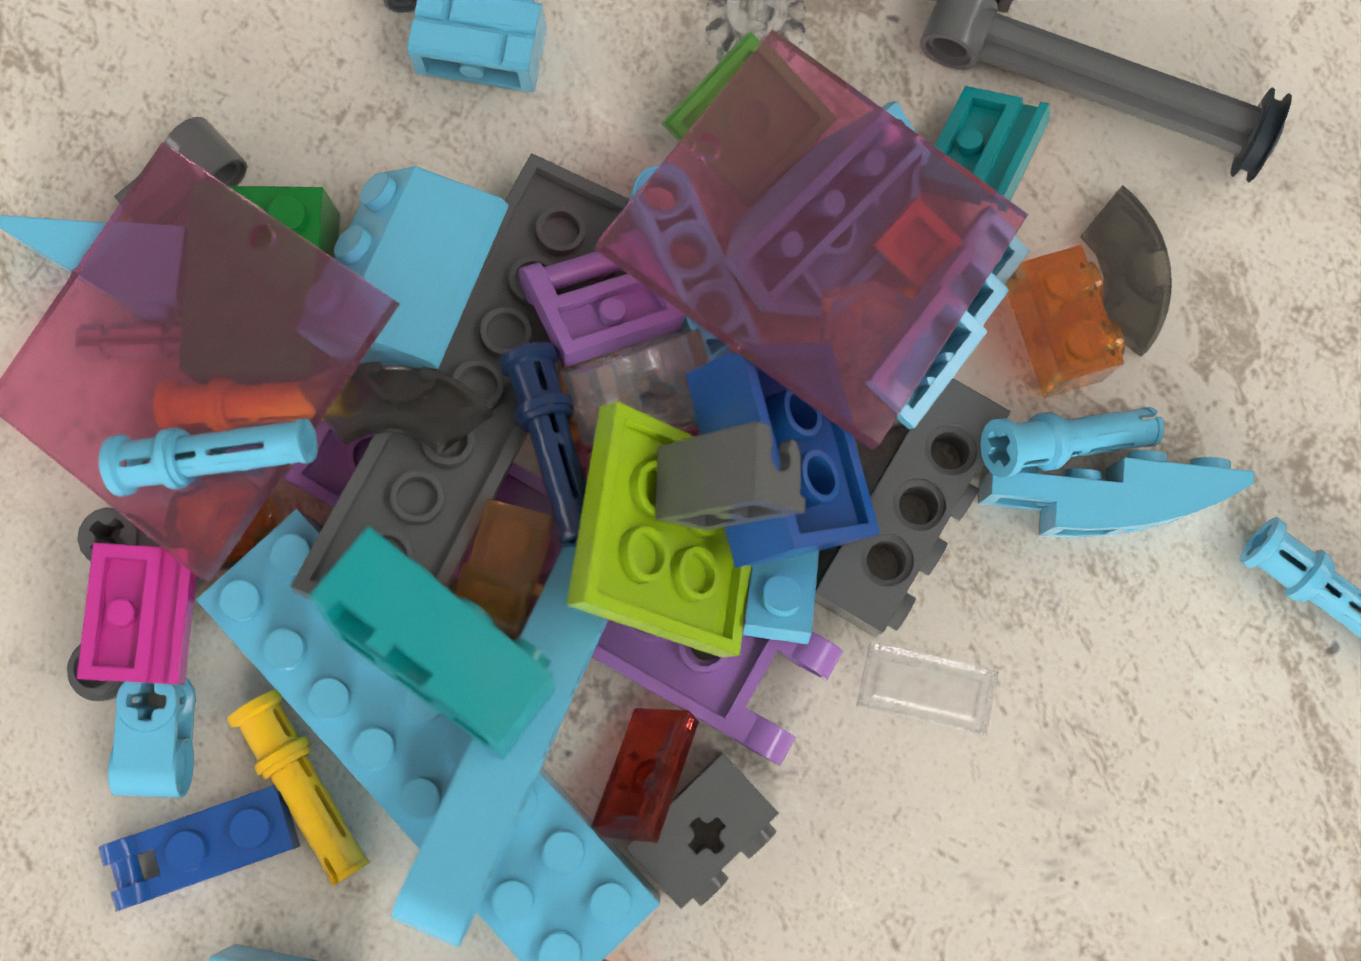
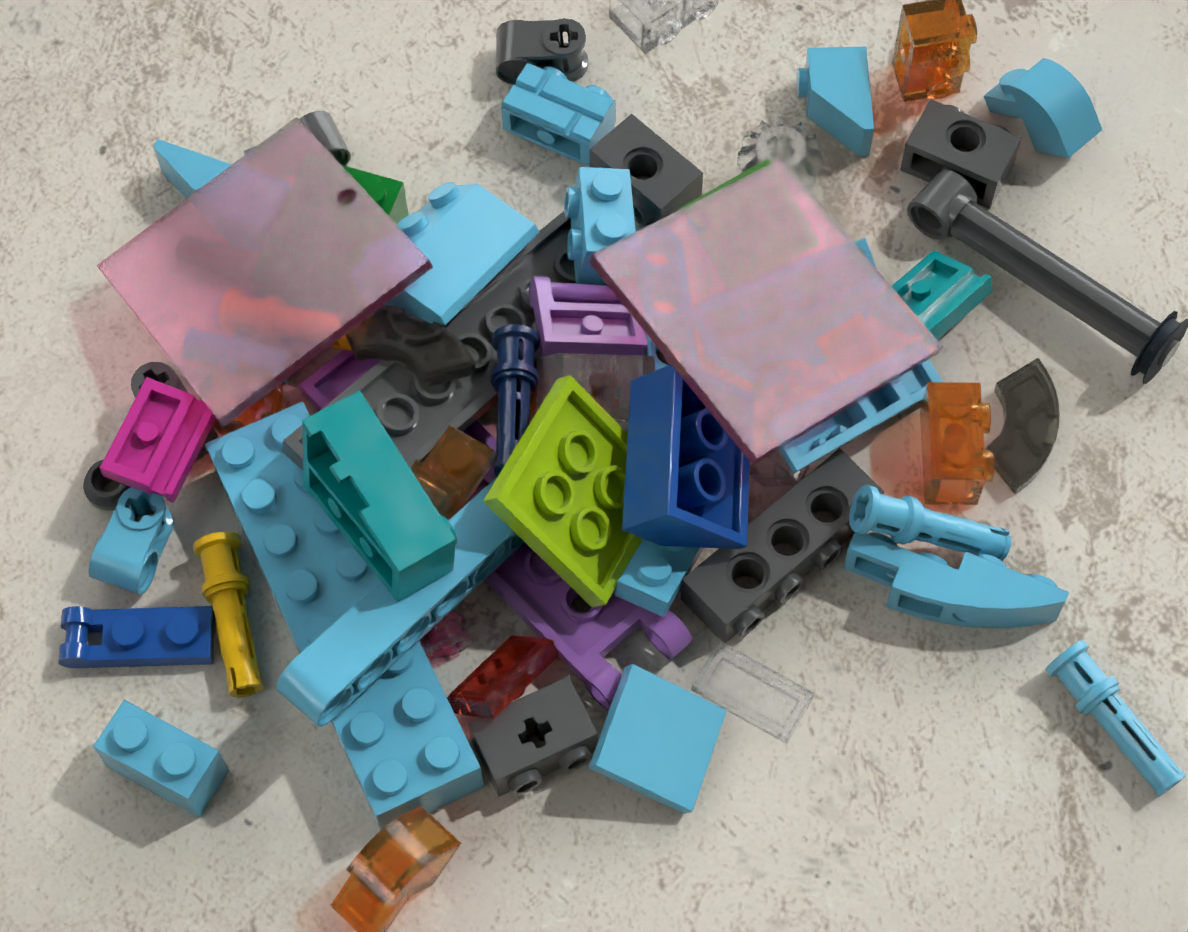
camera: 20 degrees right, 15 degrees down
(181, 457) = (233, 328): medium azure pin -> none
(568, 736) = (447, 637): none -> clear pink bush
(578, 171) = (599, 216): none -> medium azure brick
(587, 59) = (672, 177): none -> dark grey brick
(727, 479) = (633, 453): dark grey hinge -> none
(843, 789) = (658, 739): none -> medium azure tile

